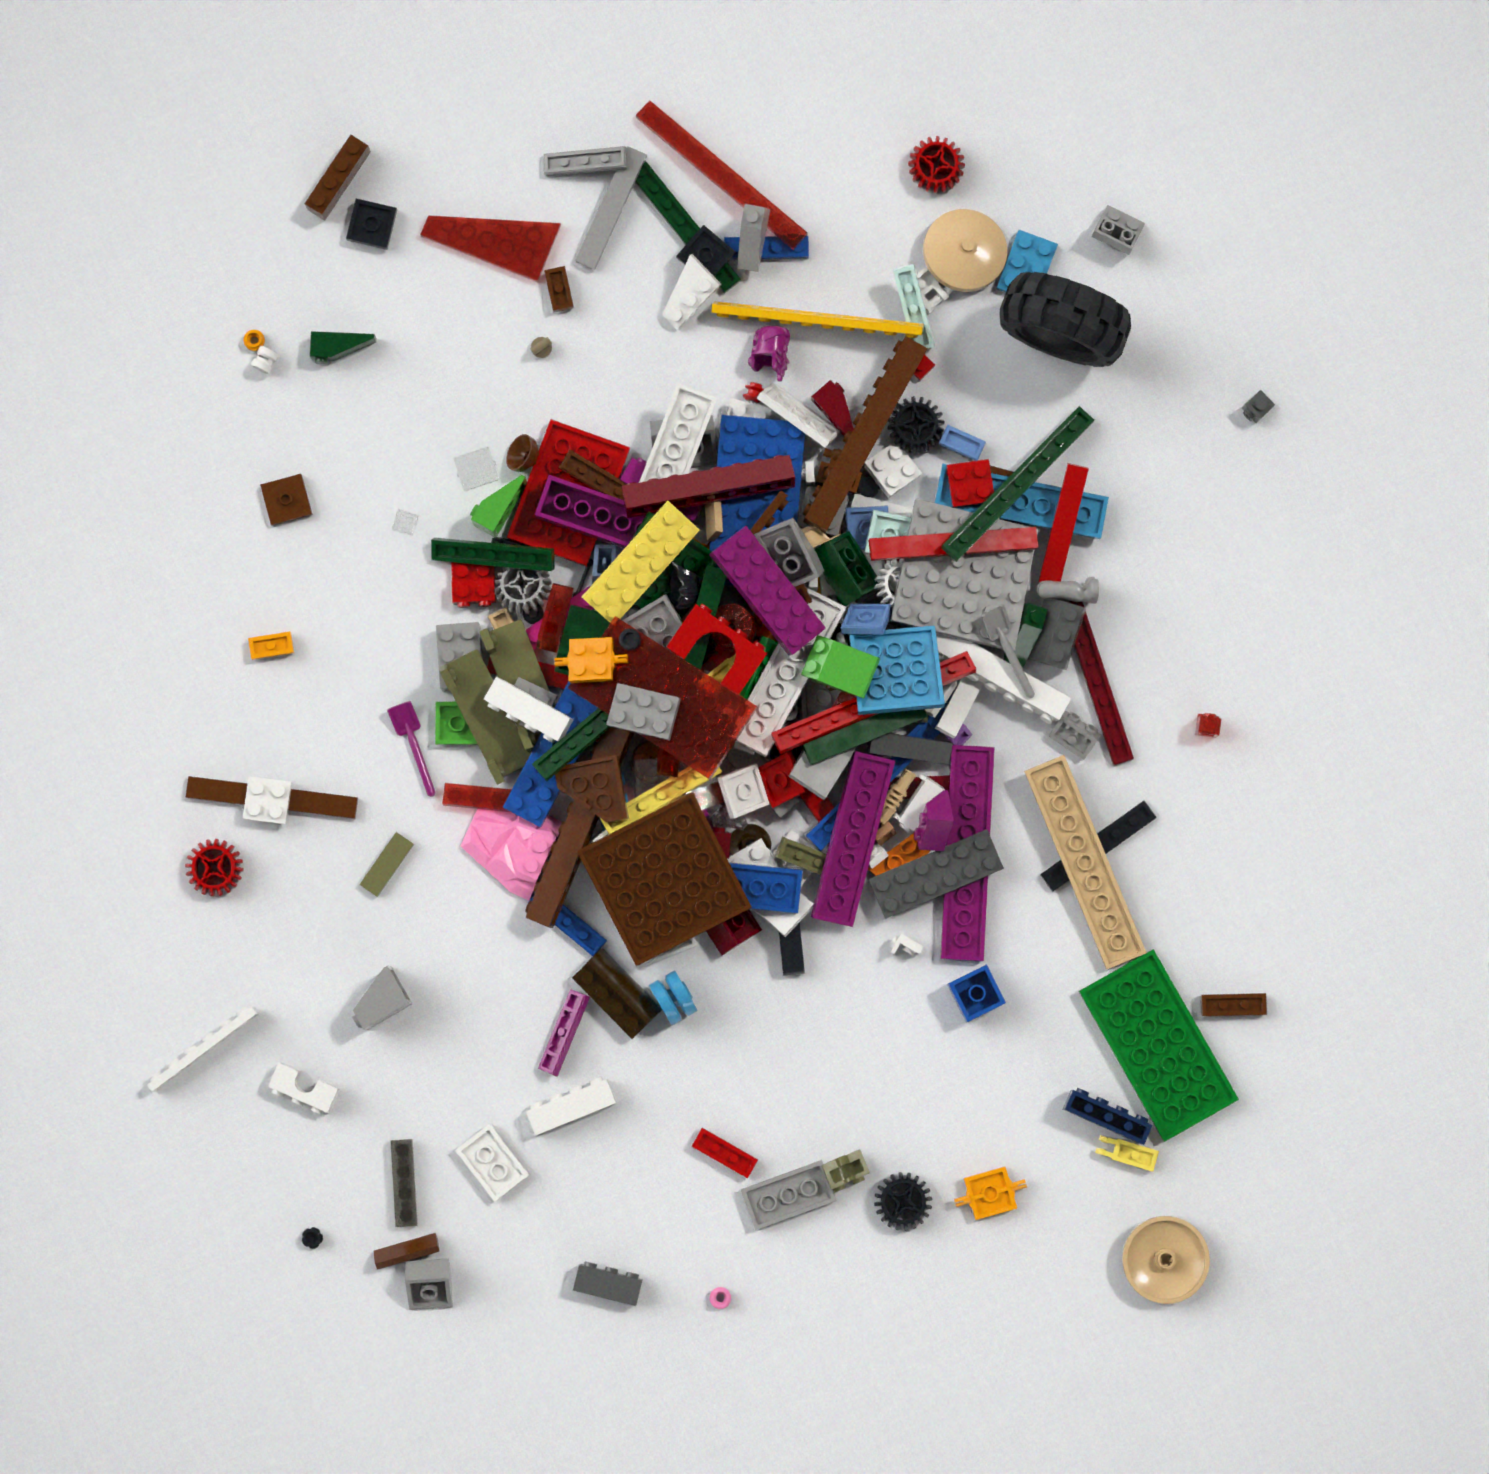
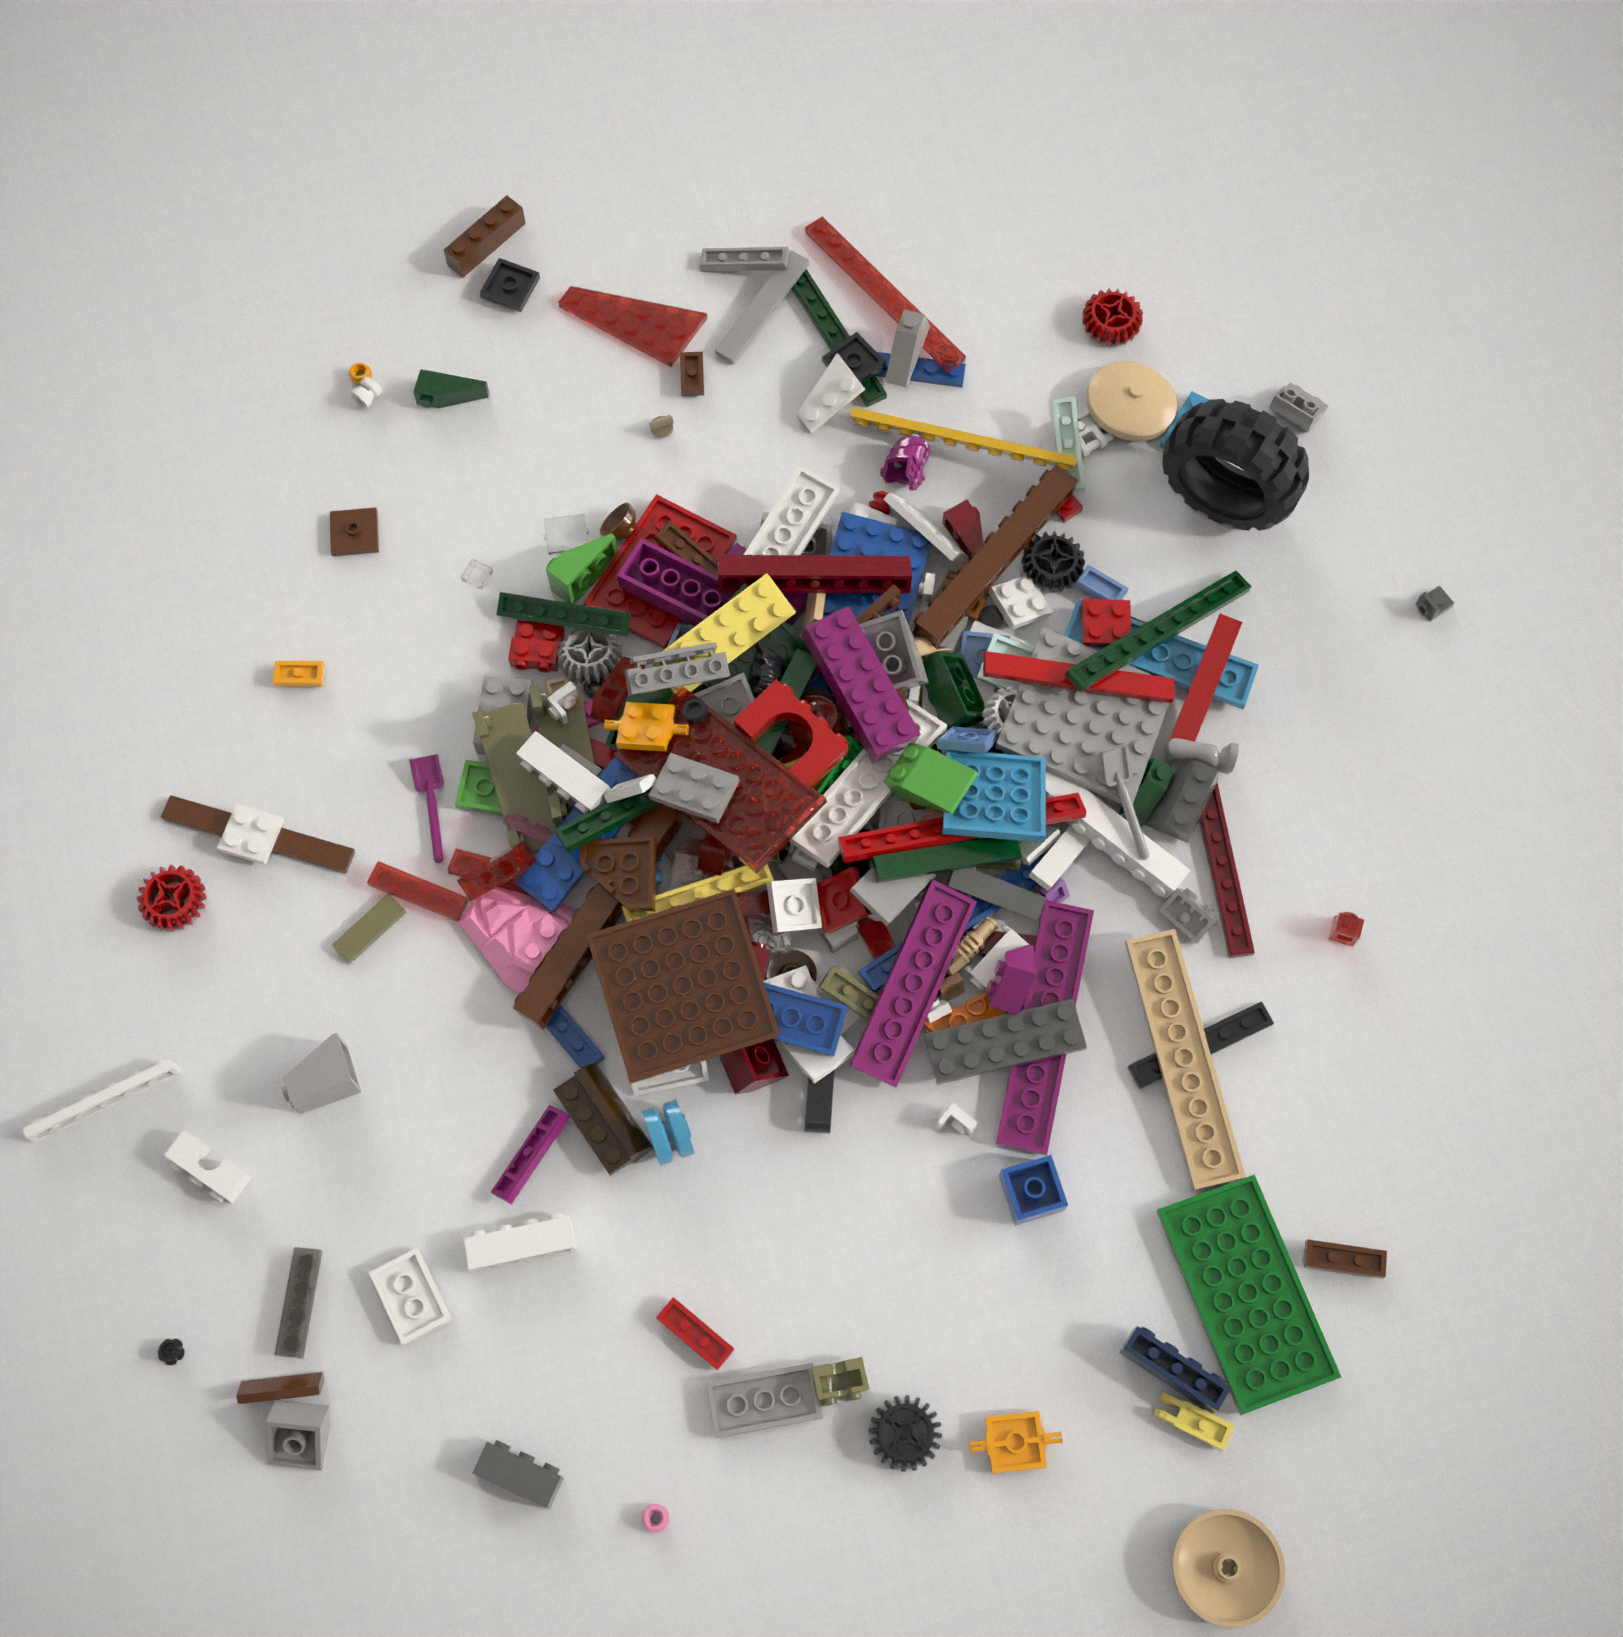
camera: 10 degrees right, 15 degrees down
(420, 825) = (417, 891): none -> clear red plate
(489, 800) = (497, 871): none -> clear red slope
(496, 755) = (519, 823): none -> clear pink plate
(510, 636) = (562, 699): none -> white bracket
(588, 718) = (630, 788): none -> white tile
(610, 610) = (677, 674): none -> light grey brick

